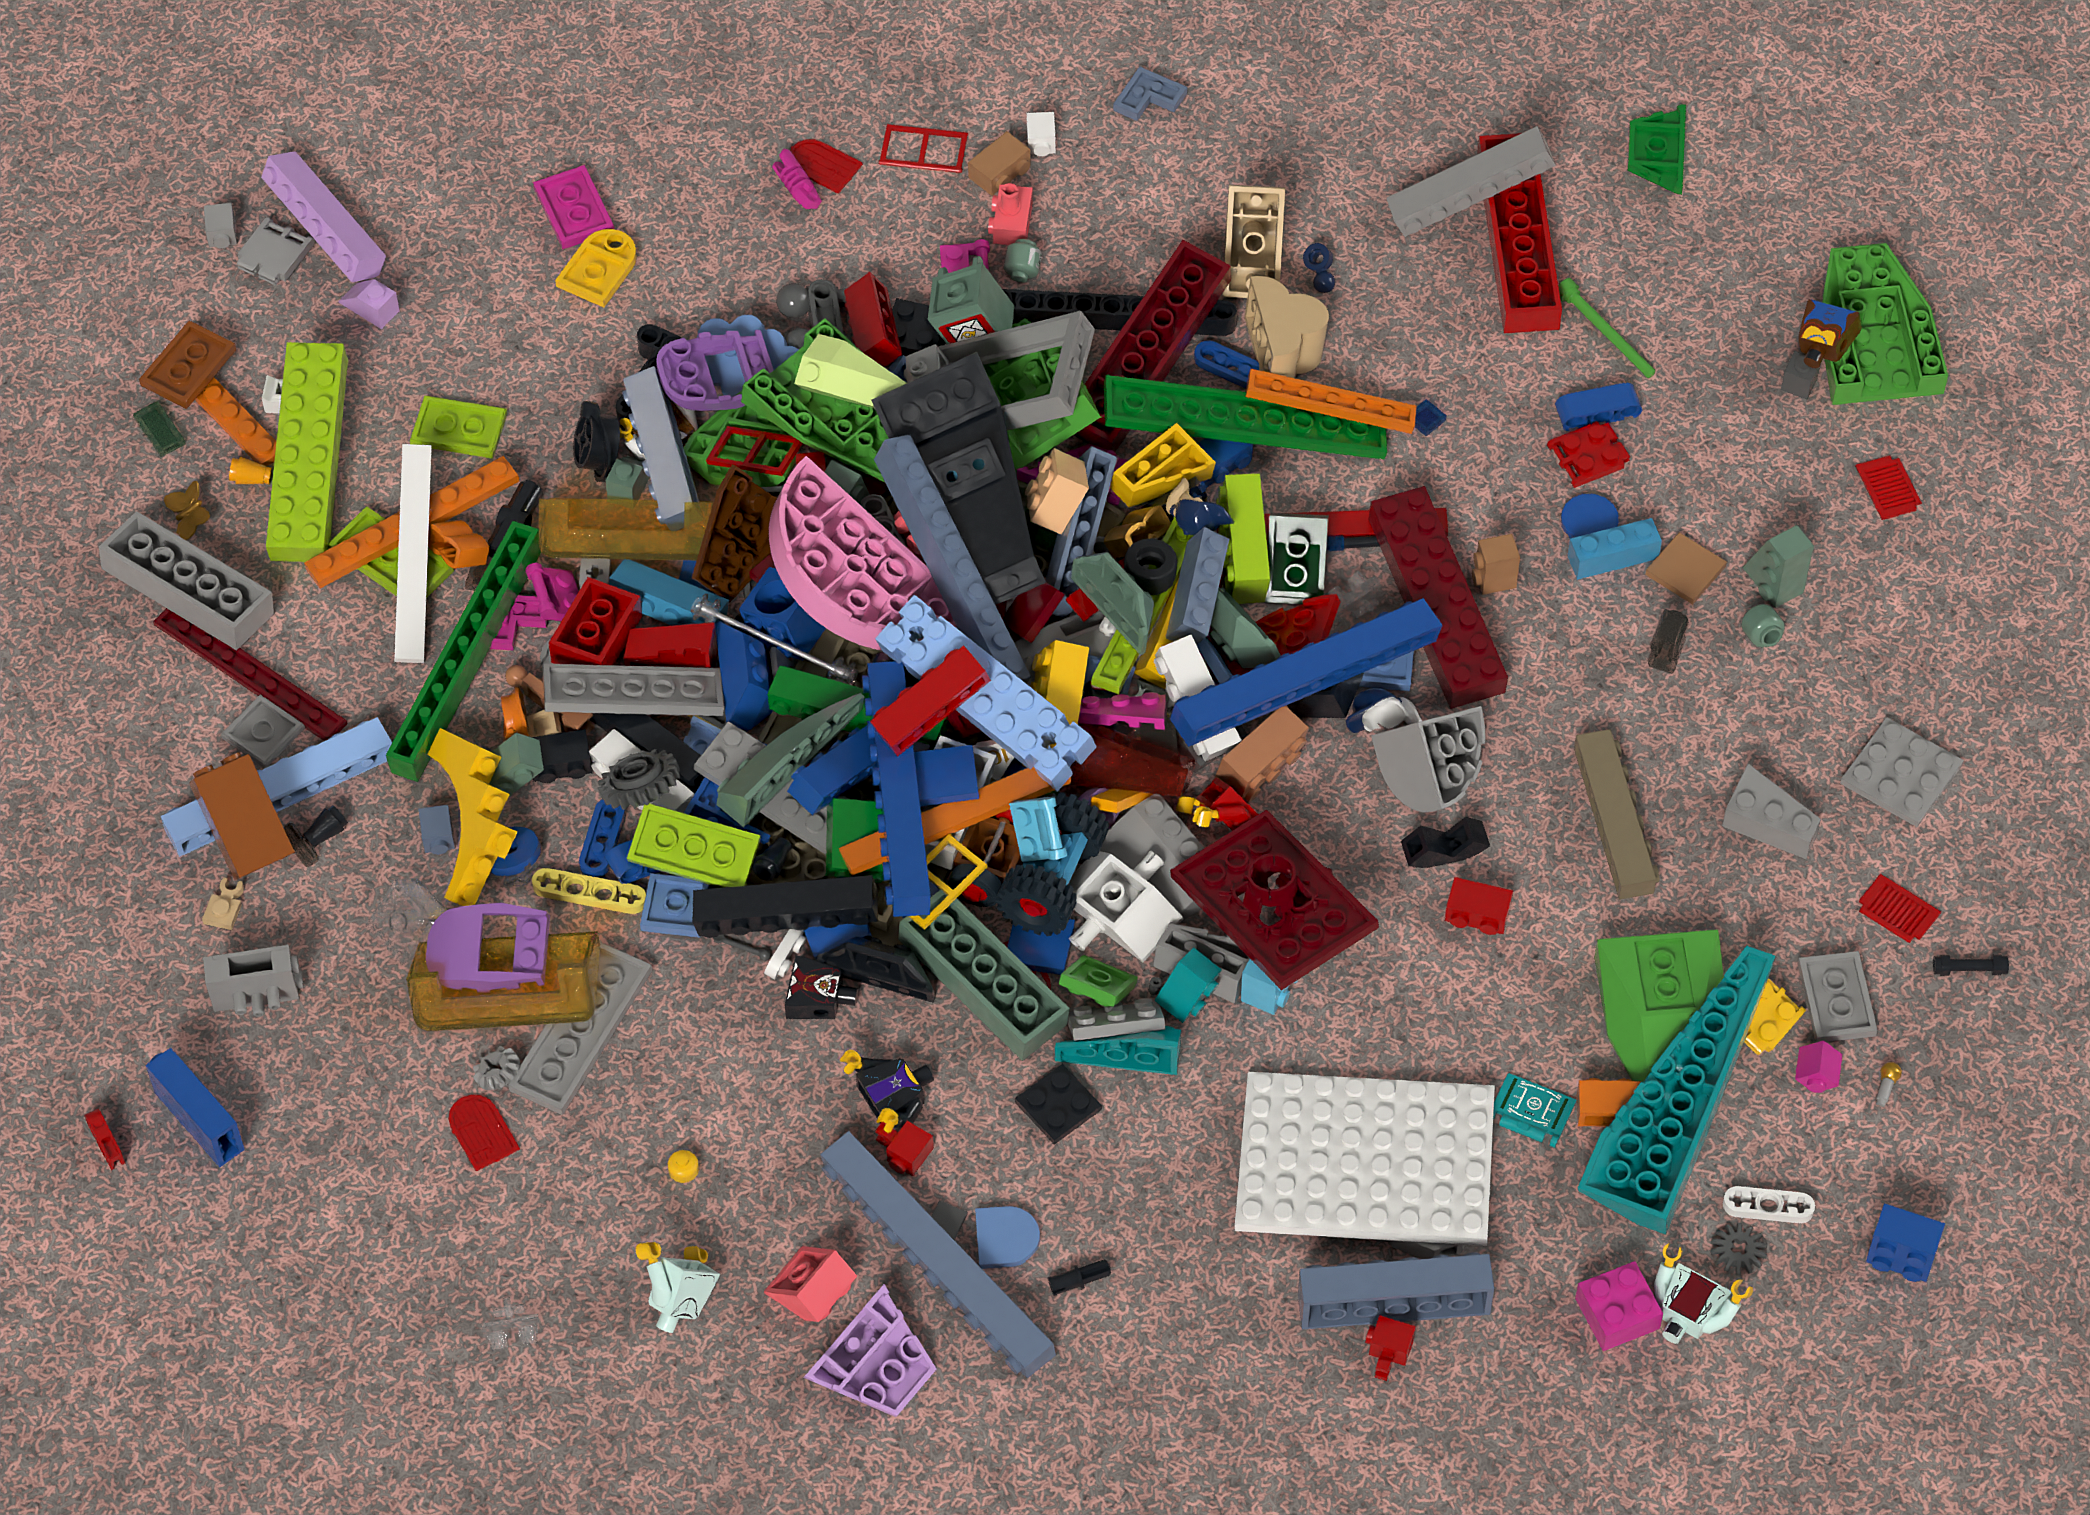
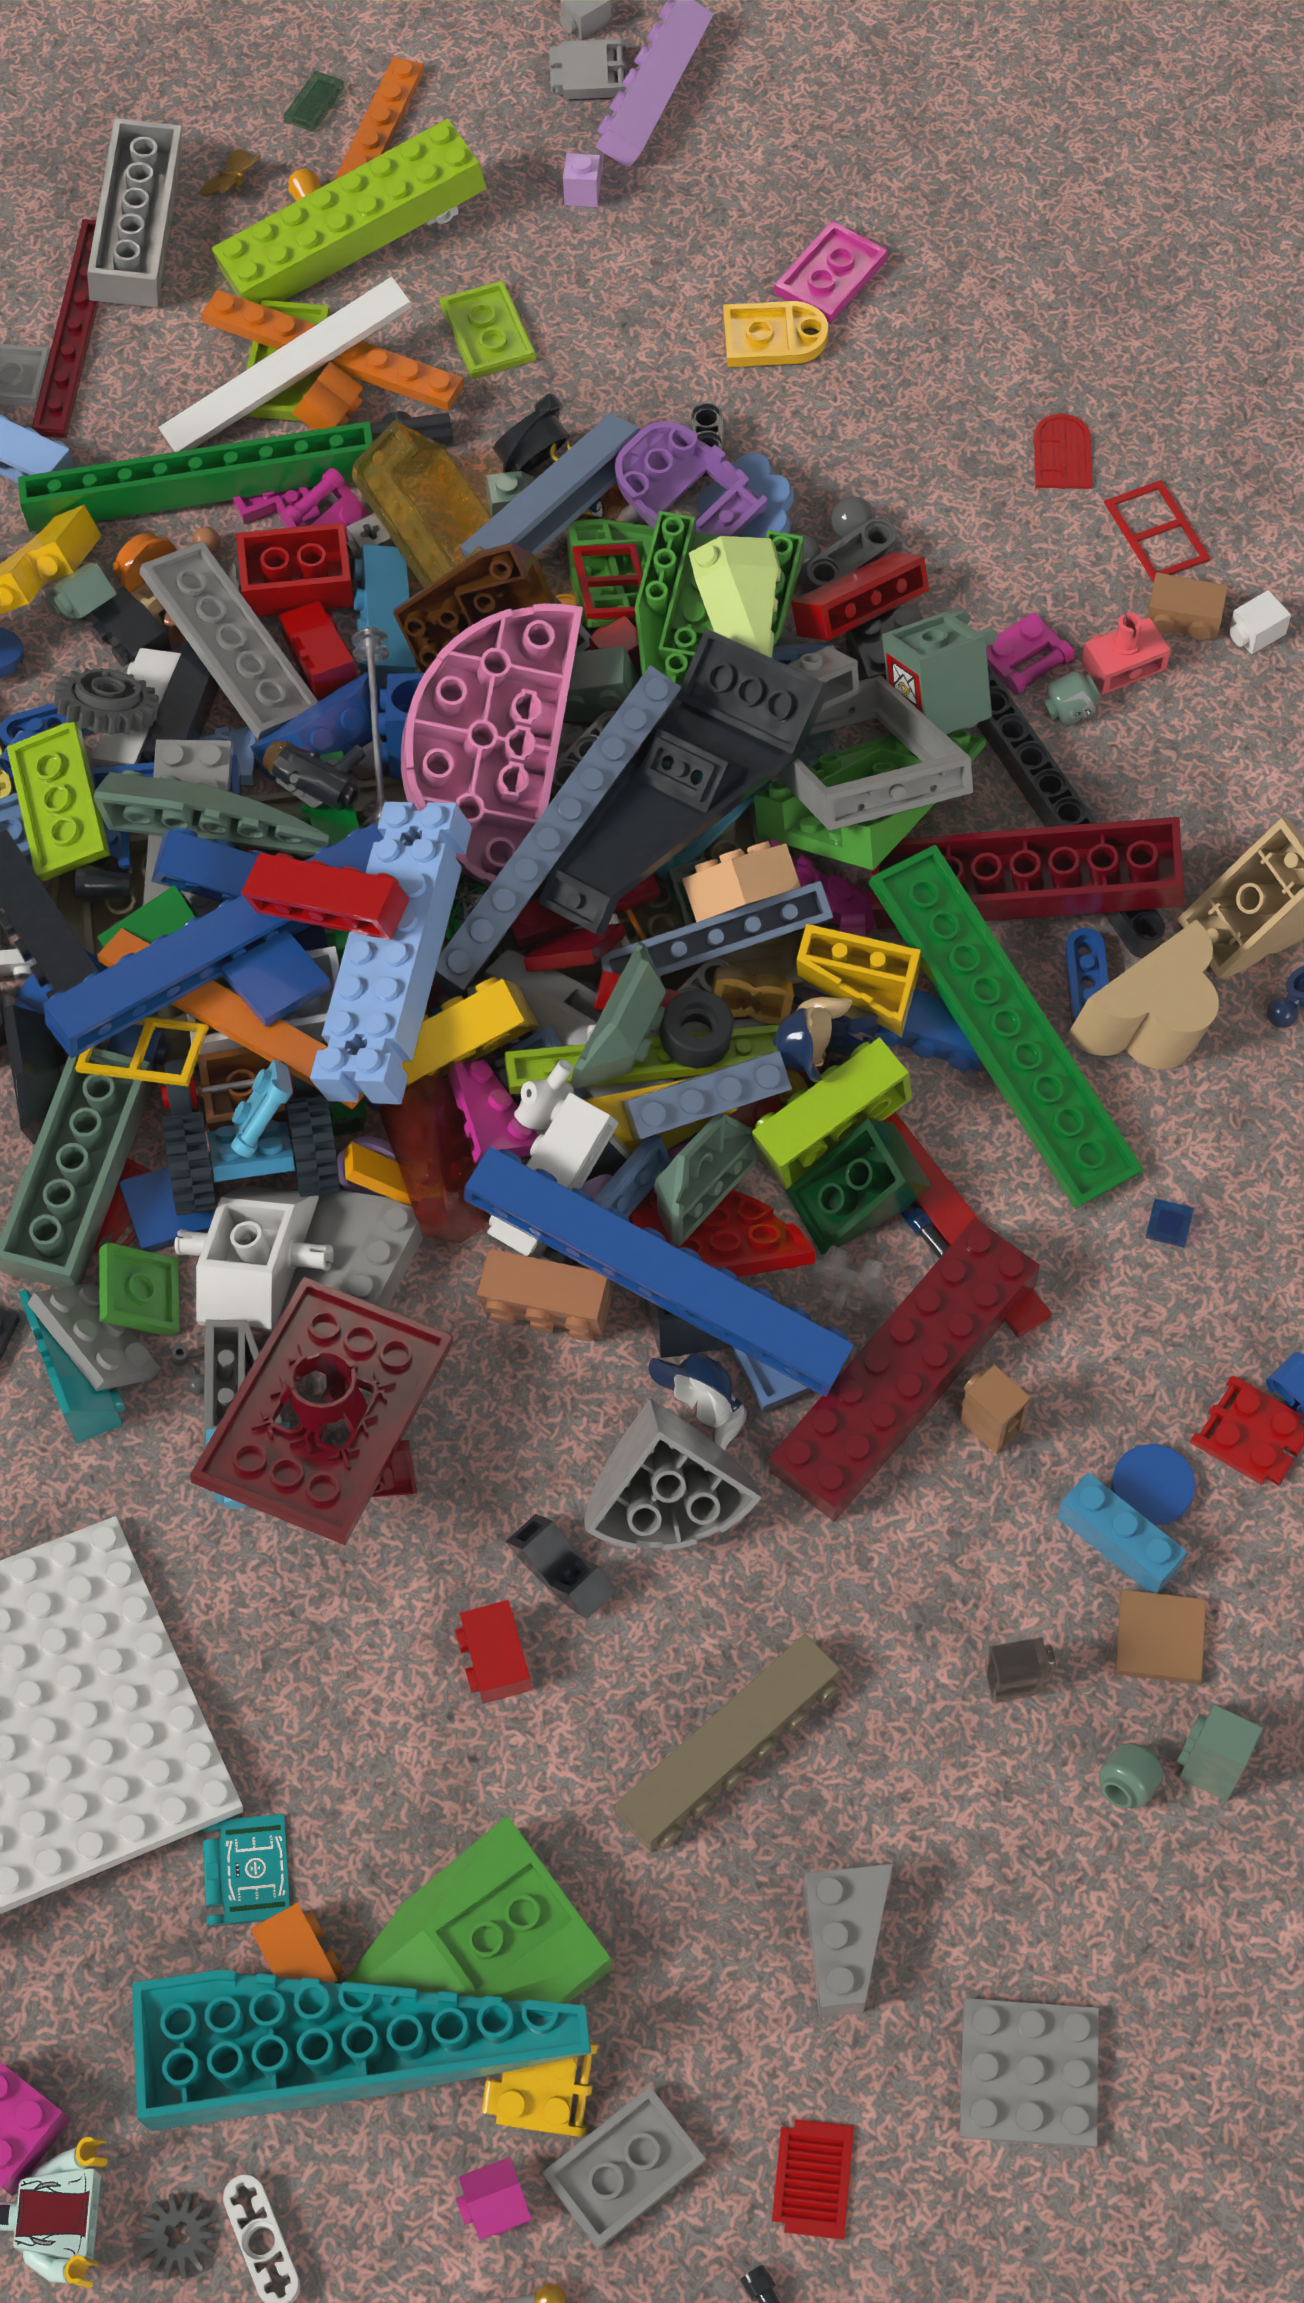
camera: 60 degrees right, 5 degrees up
(187, 364) = (390, 72): dark orange plate -> none
(796, 180) = (1016, 439): dark pink hinge -> none
(798, 686) = (311, 777): none -> black piece
(1143, 670) = (541, 1097): none -> white piece
(1188, 985) = (176, 1385): teal brick -> none
(1217, 802) = (442, 1292): red torso -> none
(1331, 401) = (1095, 1102): orange plate -> none

